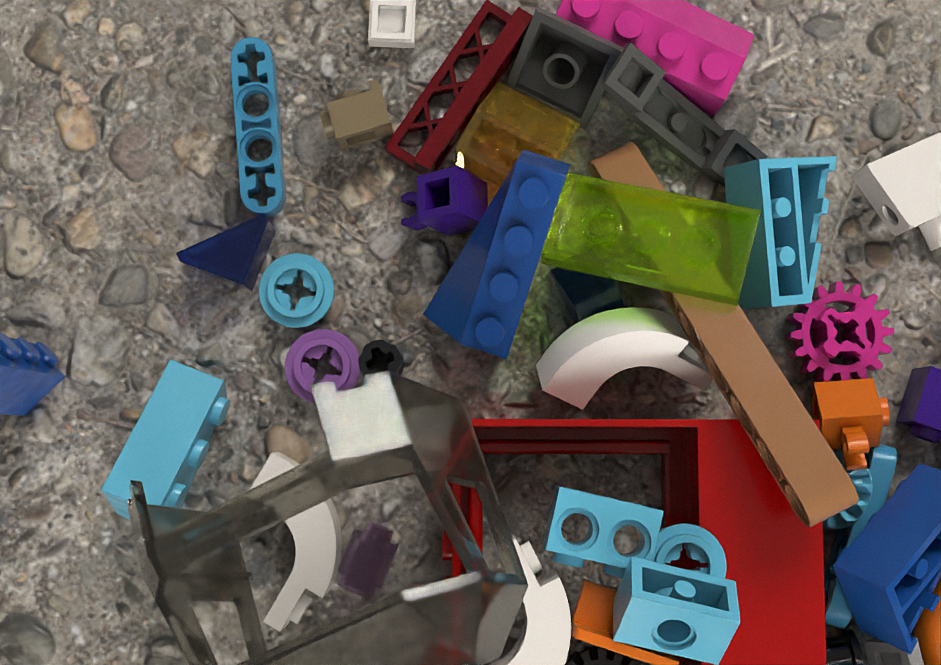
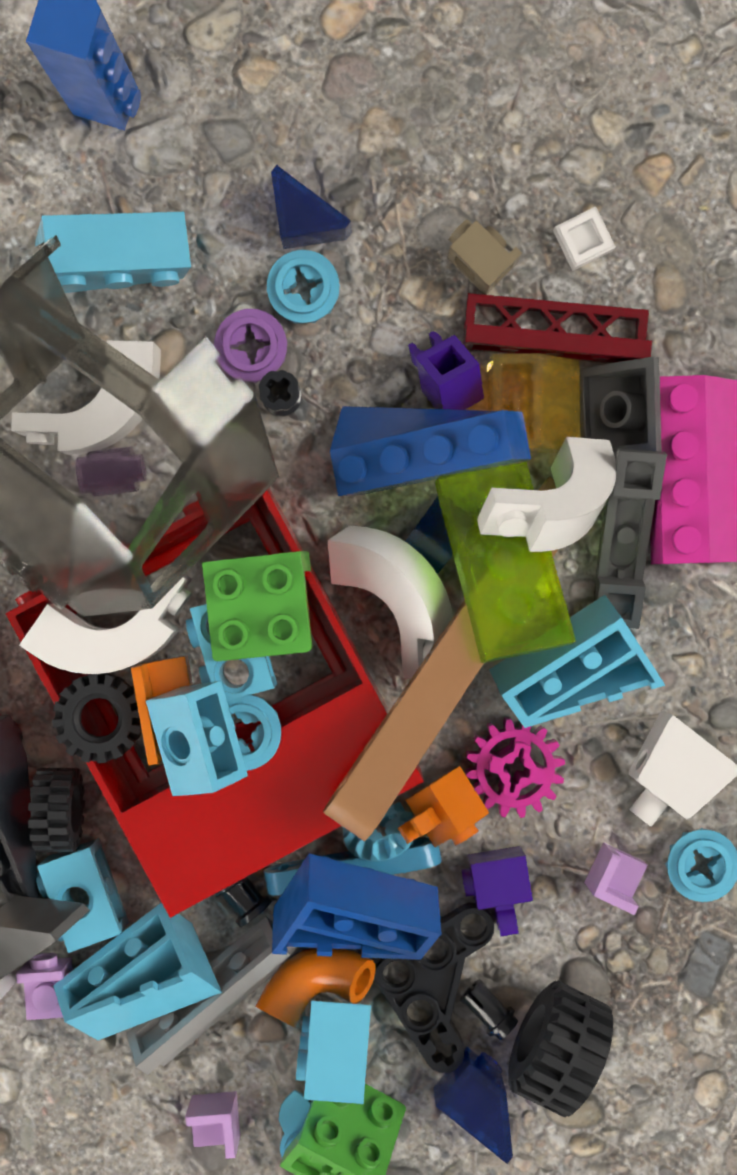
camera: 60 degrees right, 5 degrees up
(260, 127) = (430, 178): dark azure beam -> none
(578, 483) = (258, 606): none -> bright green bracket
(618, 132) = (560, 516): none -> white arch

